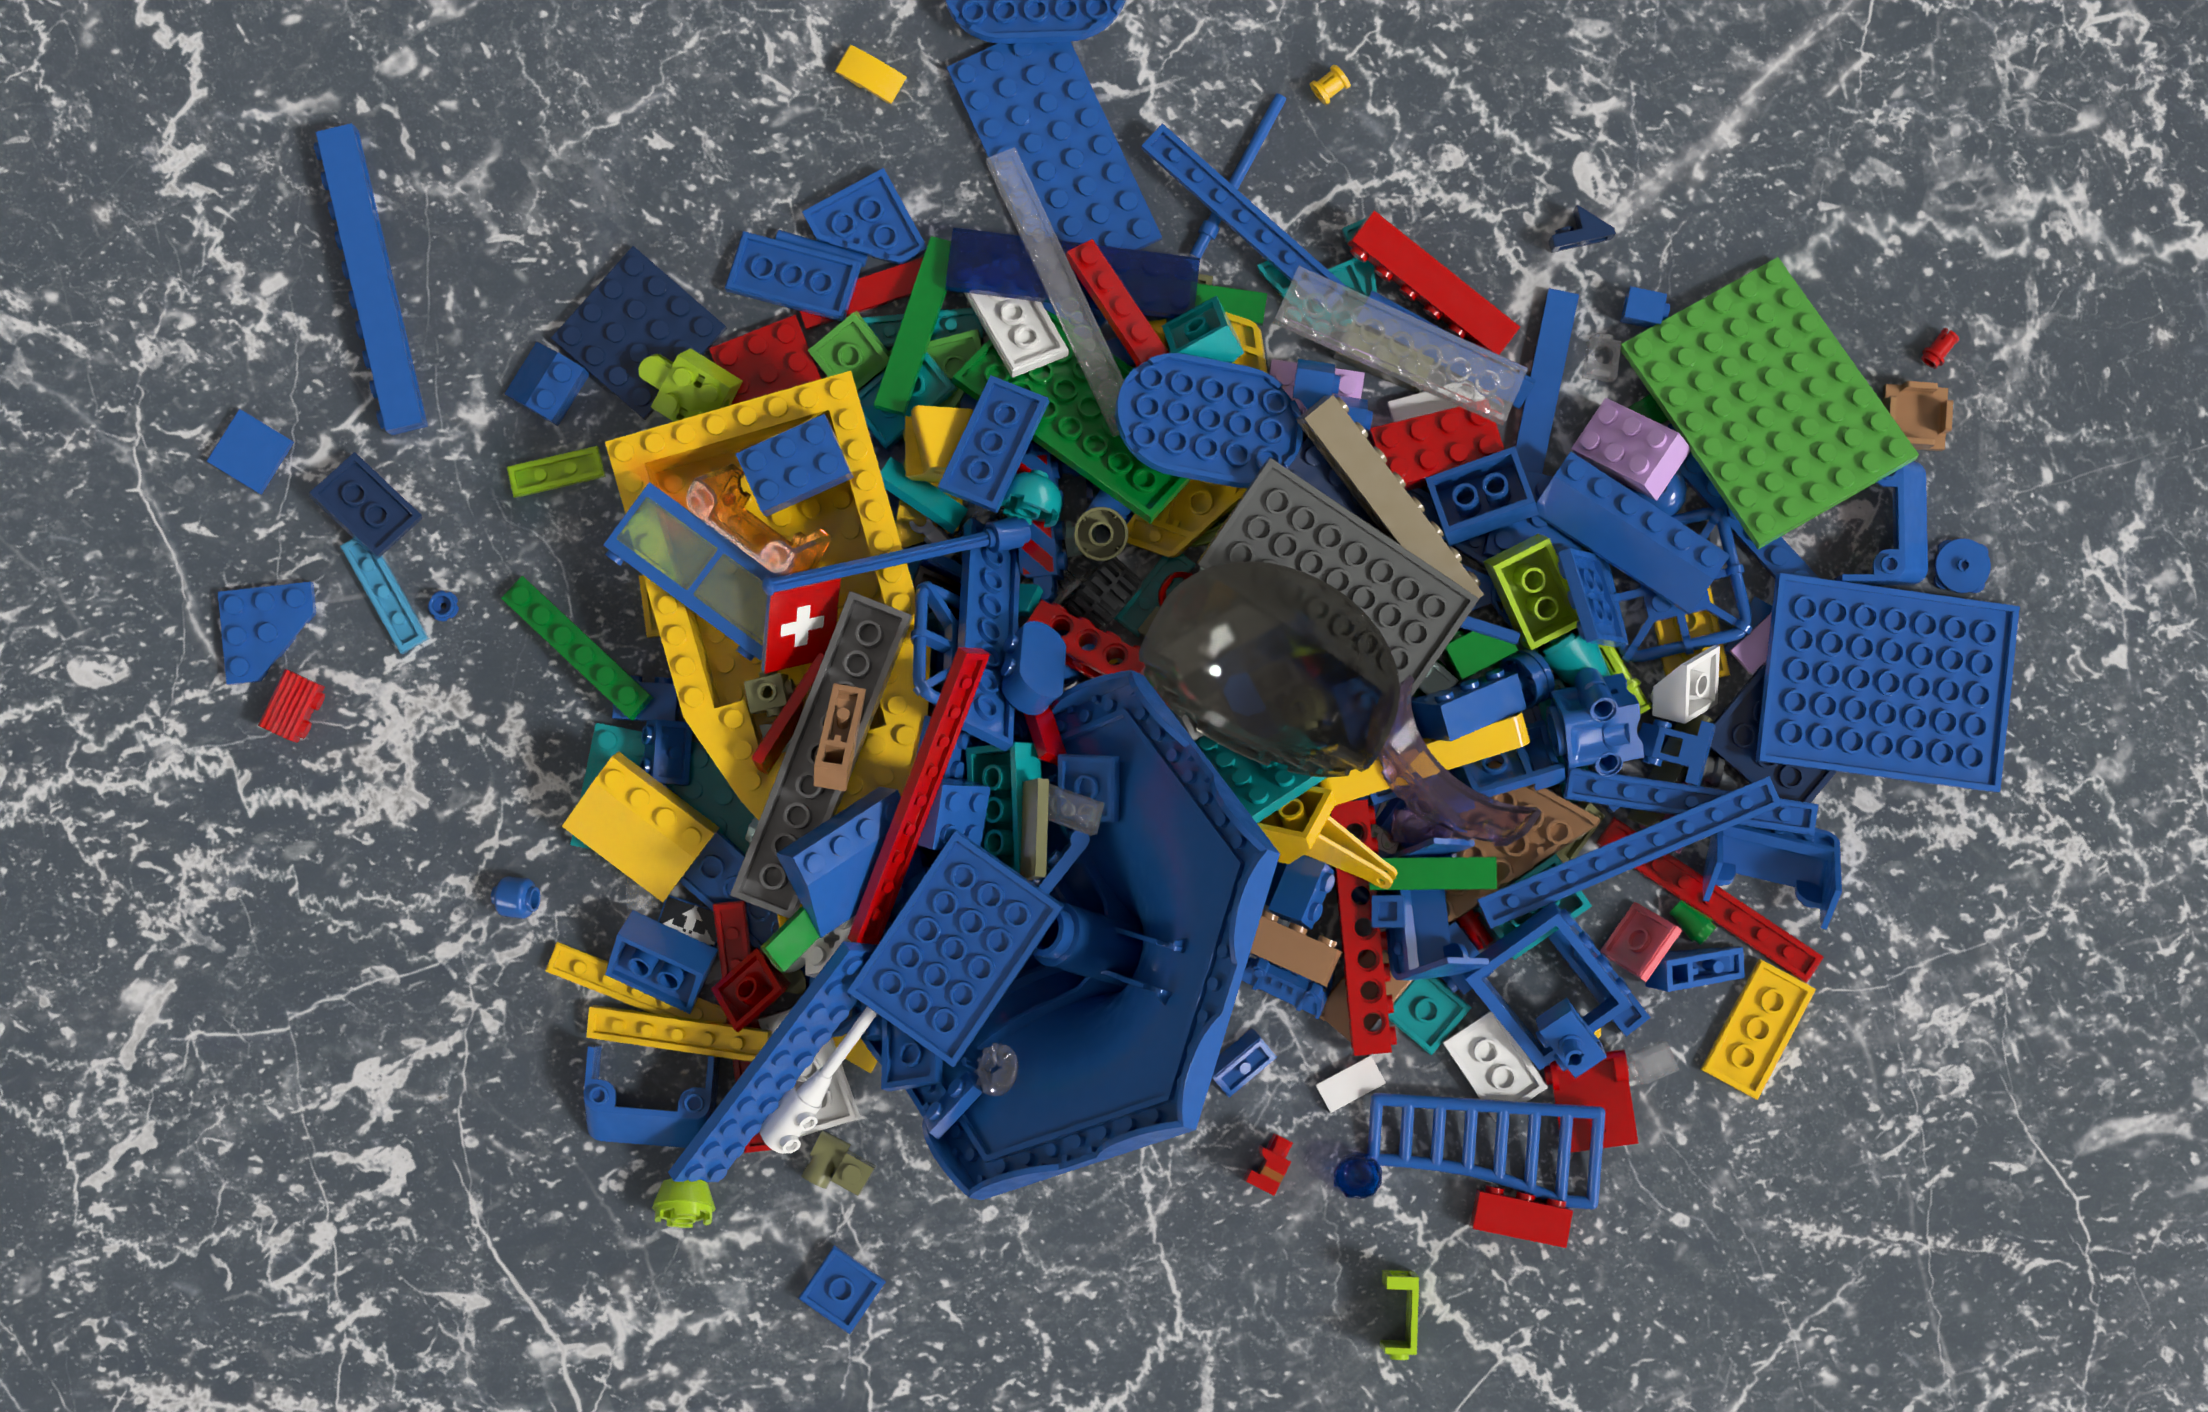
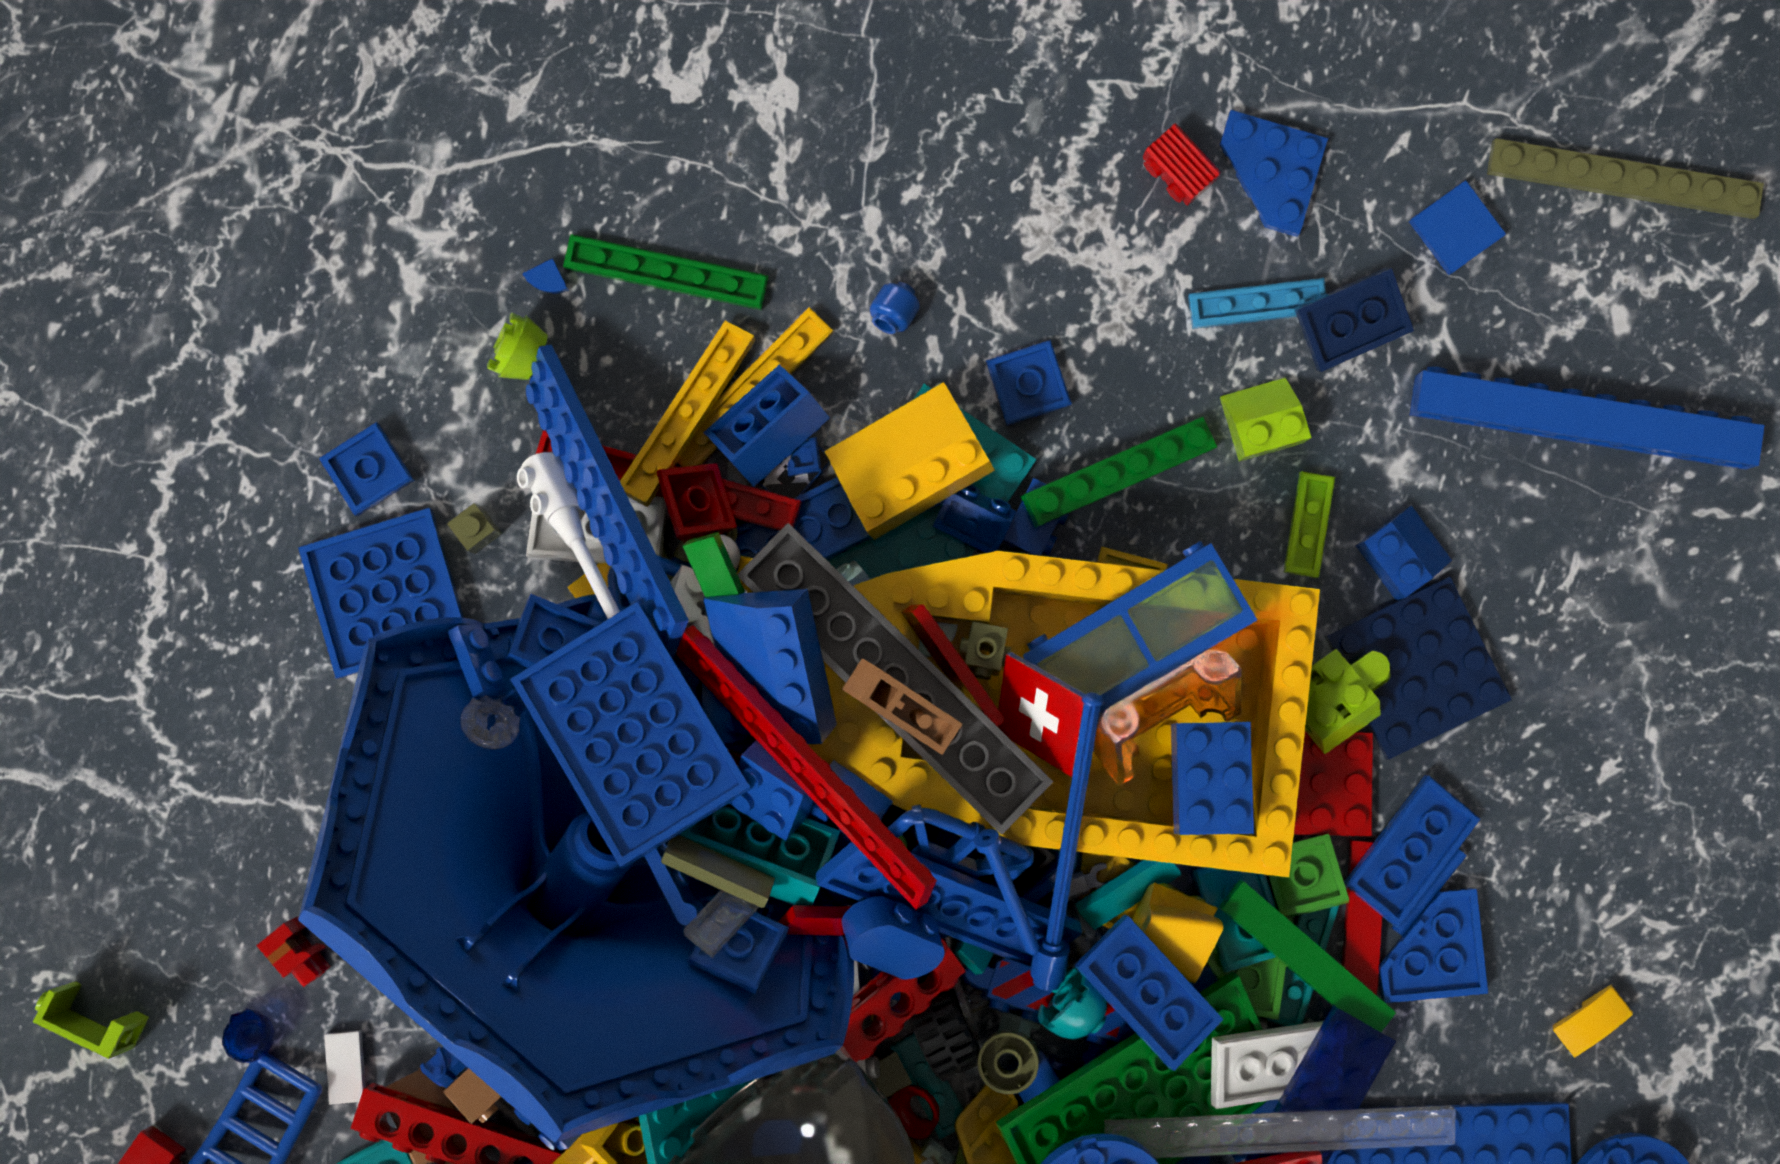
camera: 115 degrees right, 0 degrees up
(150, 329) = (1625, 178): none -> olive plate
(435, 602) = (1224, 348): blue plate -> none
(481, 545) = (1265, 419): none -> lime slope
(533, 757) = (1028, 383): none -> blue tile
(565, 1107) = (666, 272): none -> green tile
(613, 1208) = (546, 278): none -> blue tile
(646, 1125) = (610, 343): blue windscreen -> none
(677, 917) = (805, 459): none -> blue tile
(826, 1157) = (504, 510): olive piece -> none
(922, 622) = (988, 843): none -> blue bar
(938, 1234) = (377, 583): none -> blue plate

